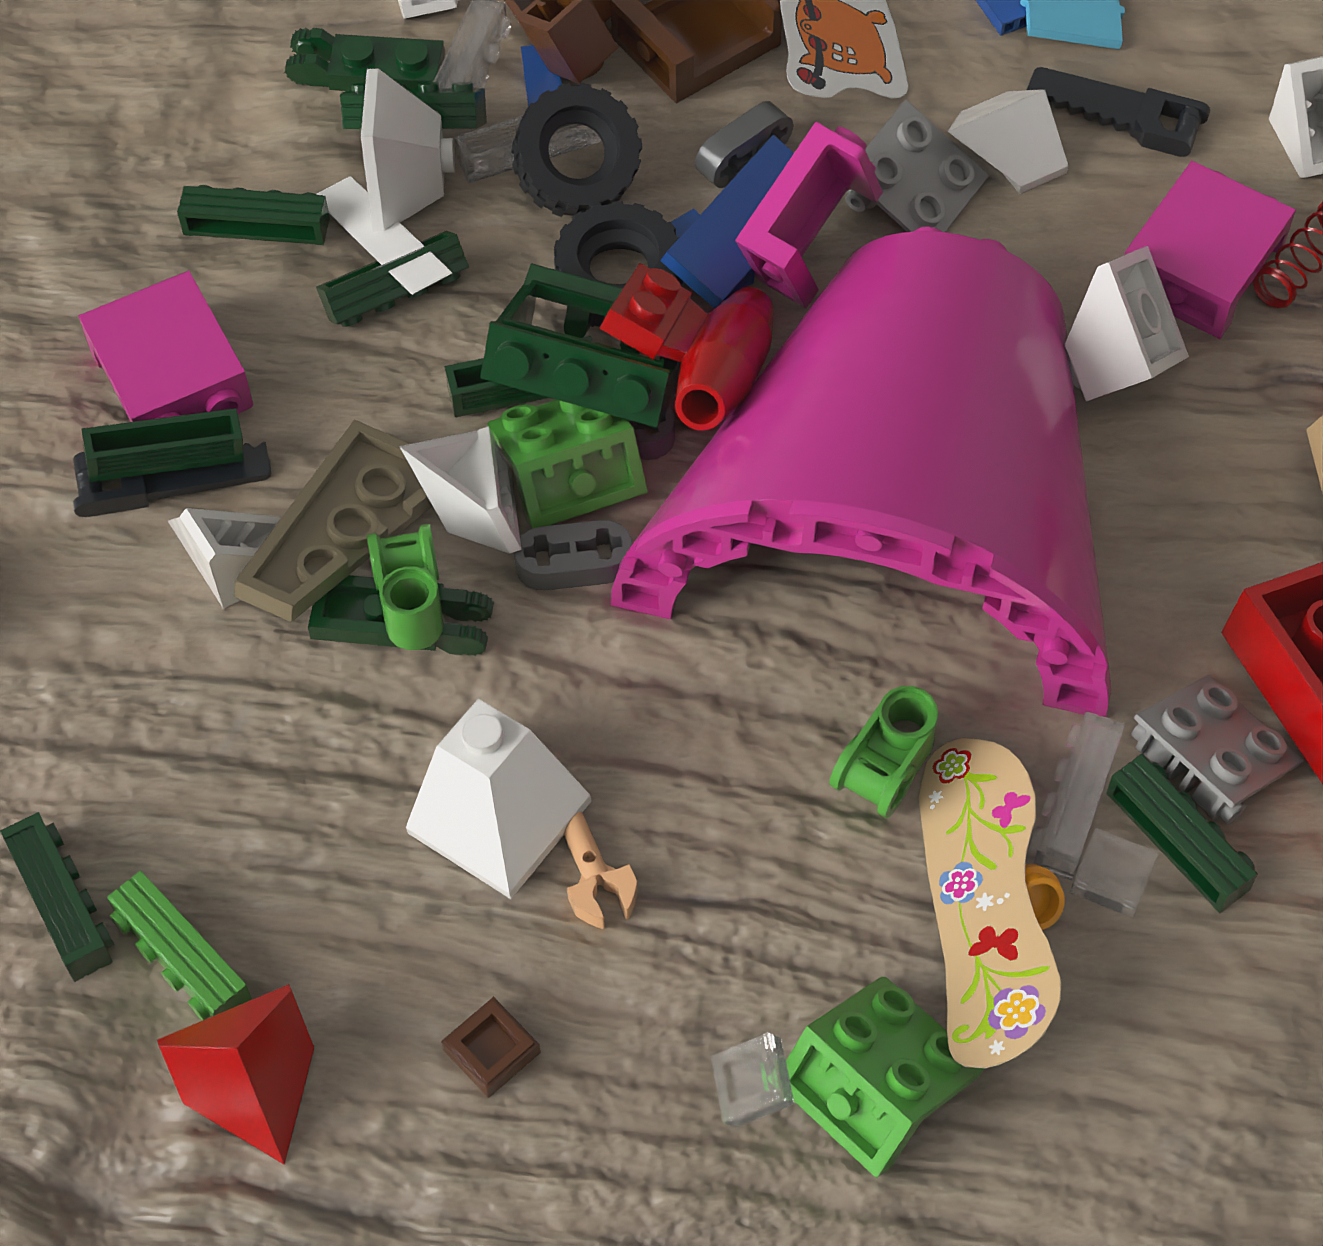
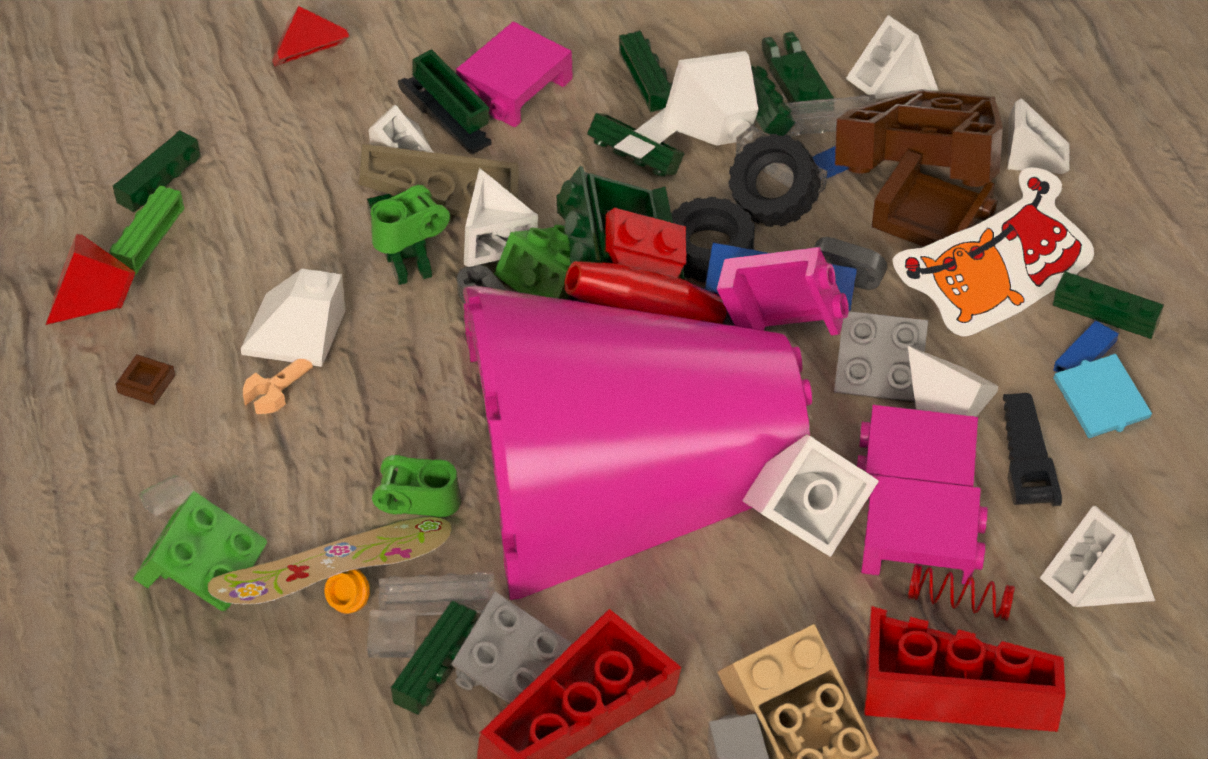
camera: 65 degrees right, 10 degrees down
(1091, 200) = (919, 445): none -> dark pink panel

